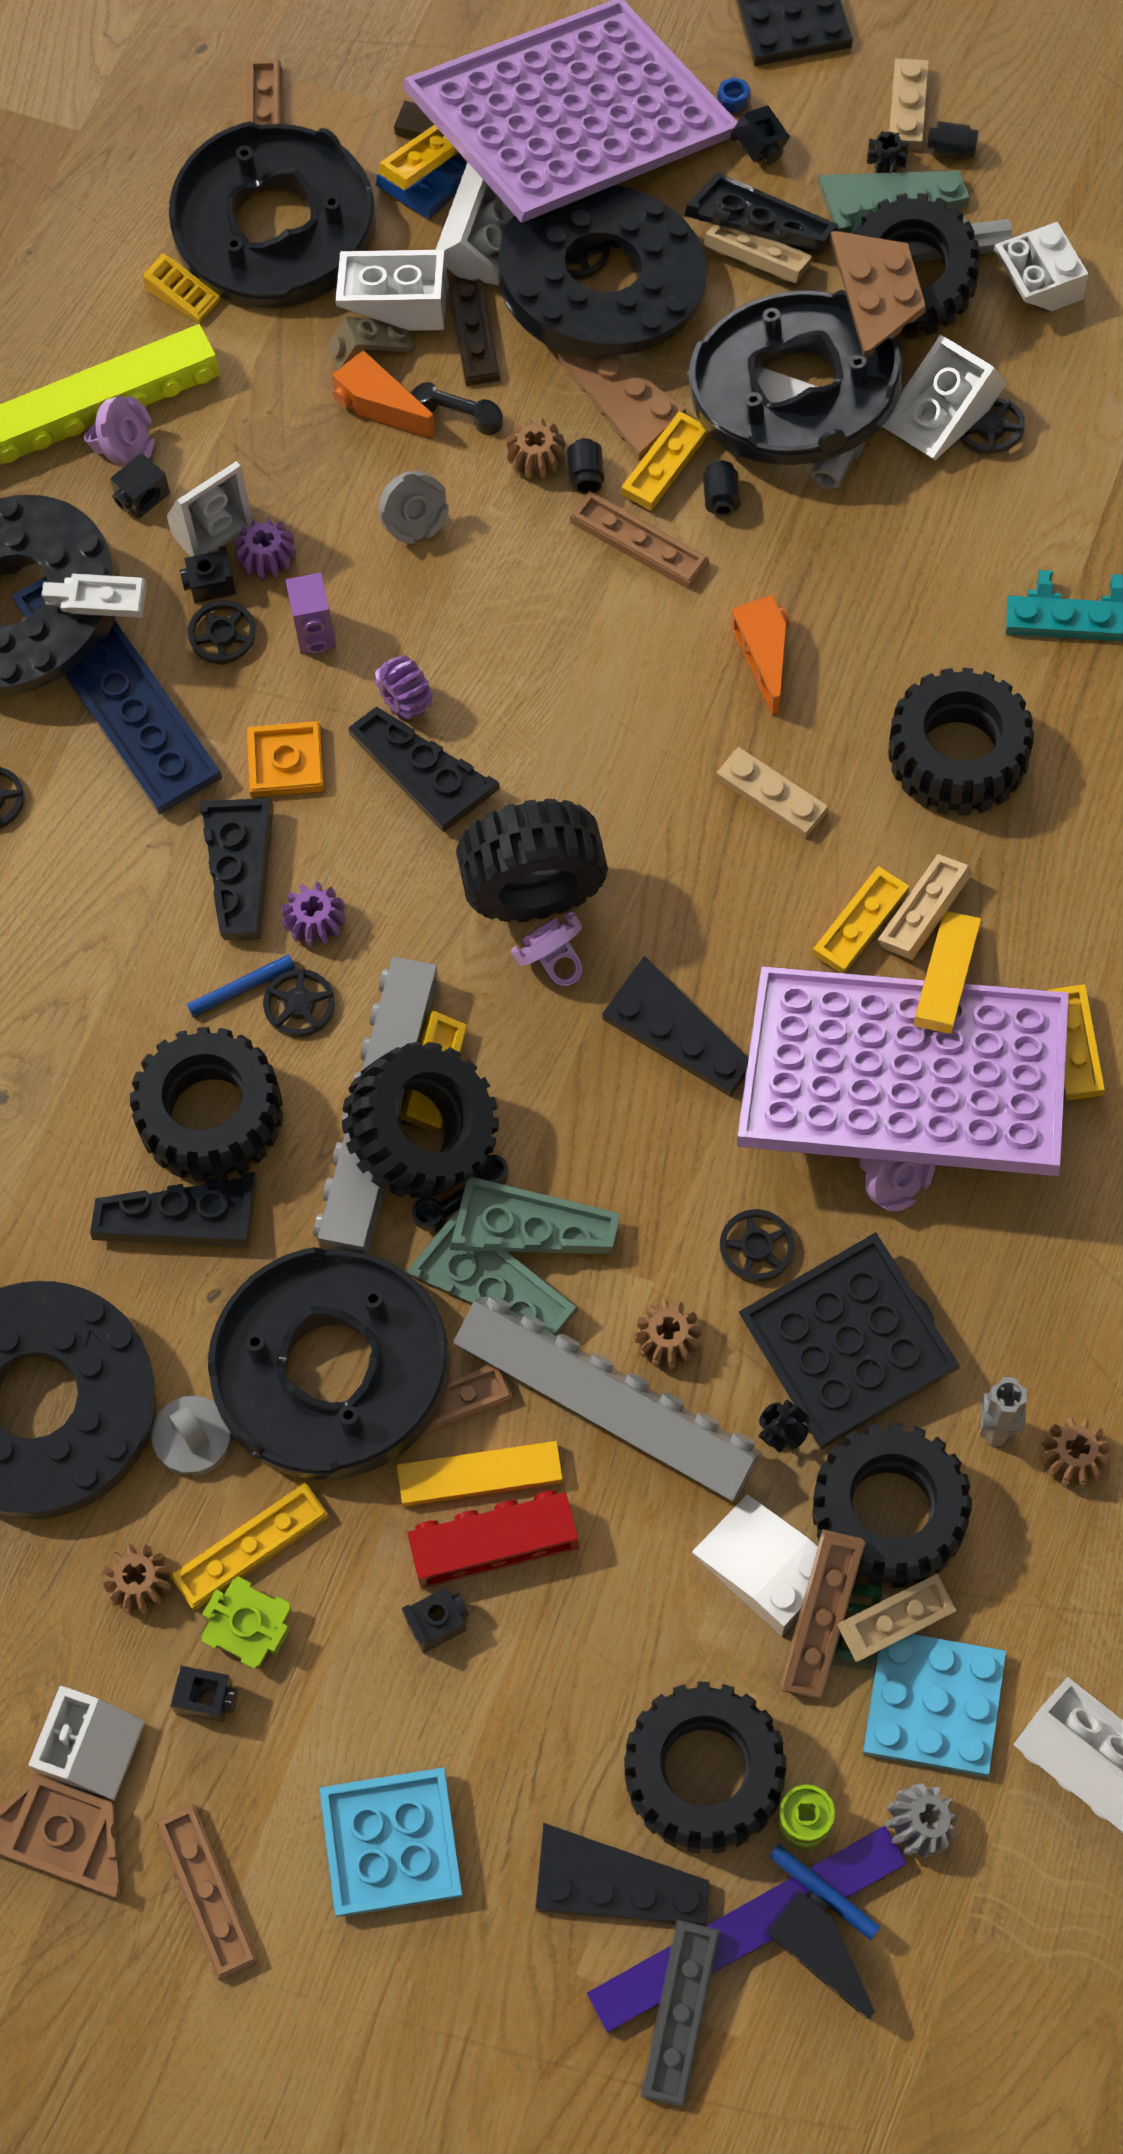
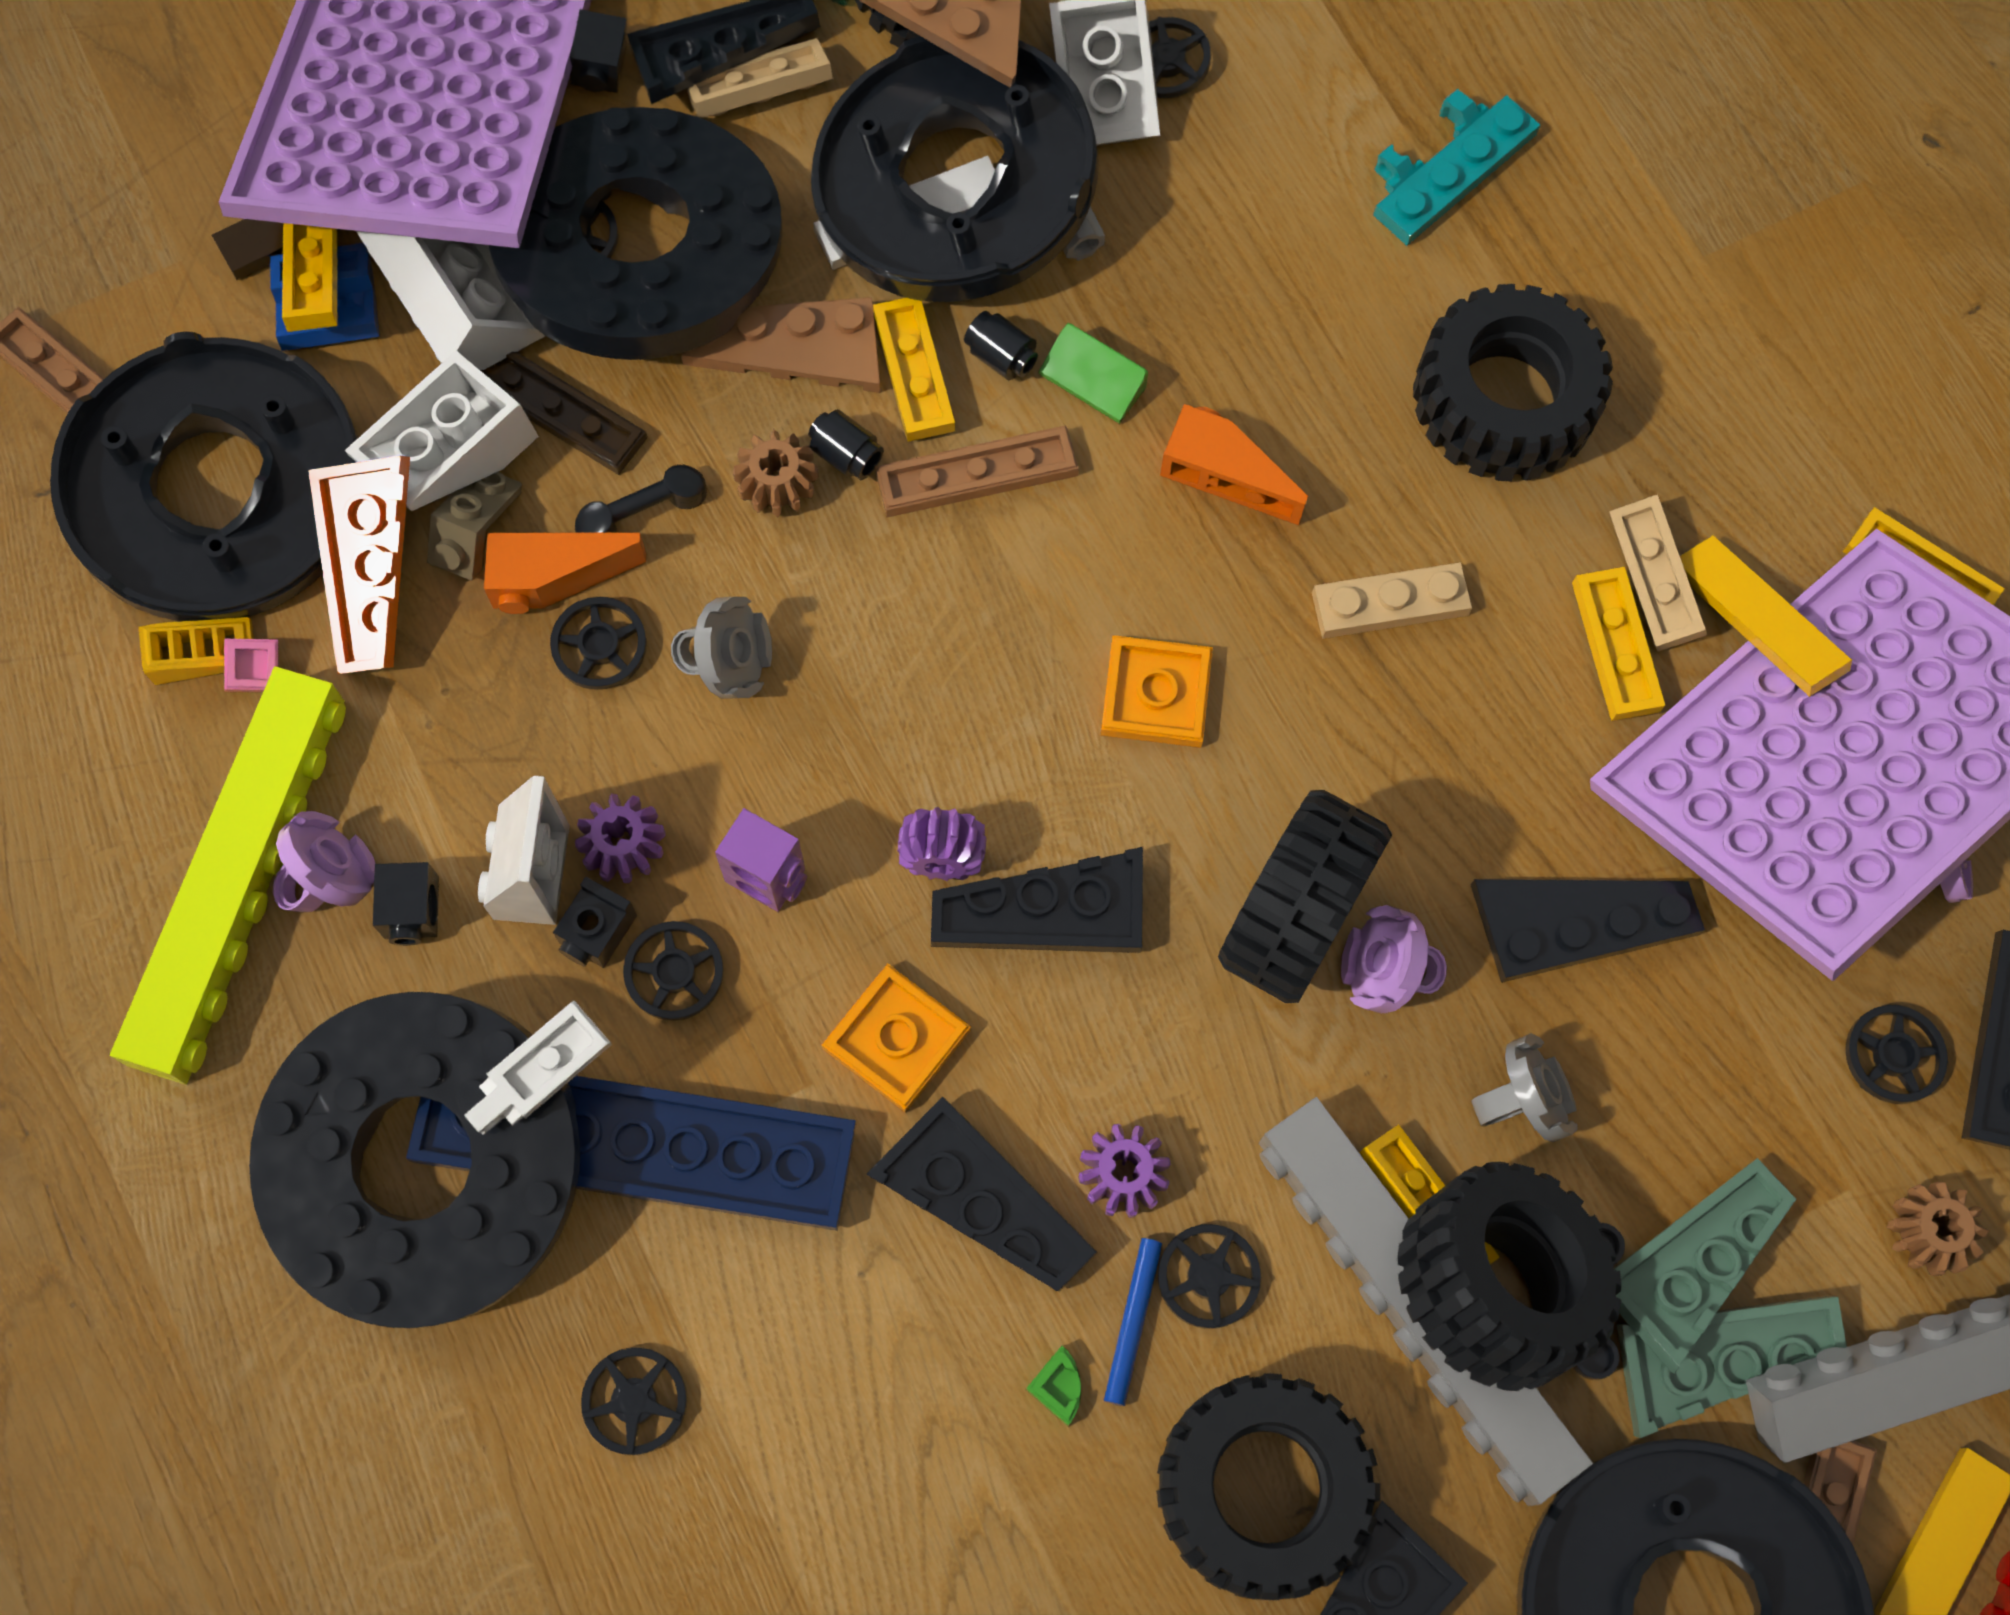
camera: 55 degrees left, 5 degrees up
(175, 978) = (1058, 1386): none -> bright green tile
(194, 312) = (248, 664): none -> bright pink tile
(298, 300) = (361, 551): none -> wing
(362, 453) = (598, 643): none -> black wheel
(546, 1068) = (1535, 1089): none -> light grey tile
(599, 723) = (1156, 691): none -> light orange tile
(690, 168) = (598, 51): none -> black brick
(753, 546) = (1094, 373): none -> bright green slope

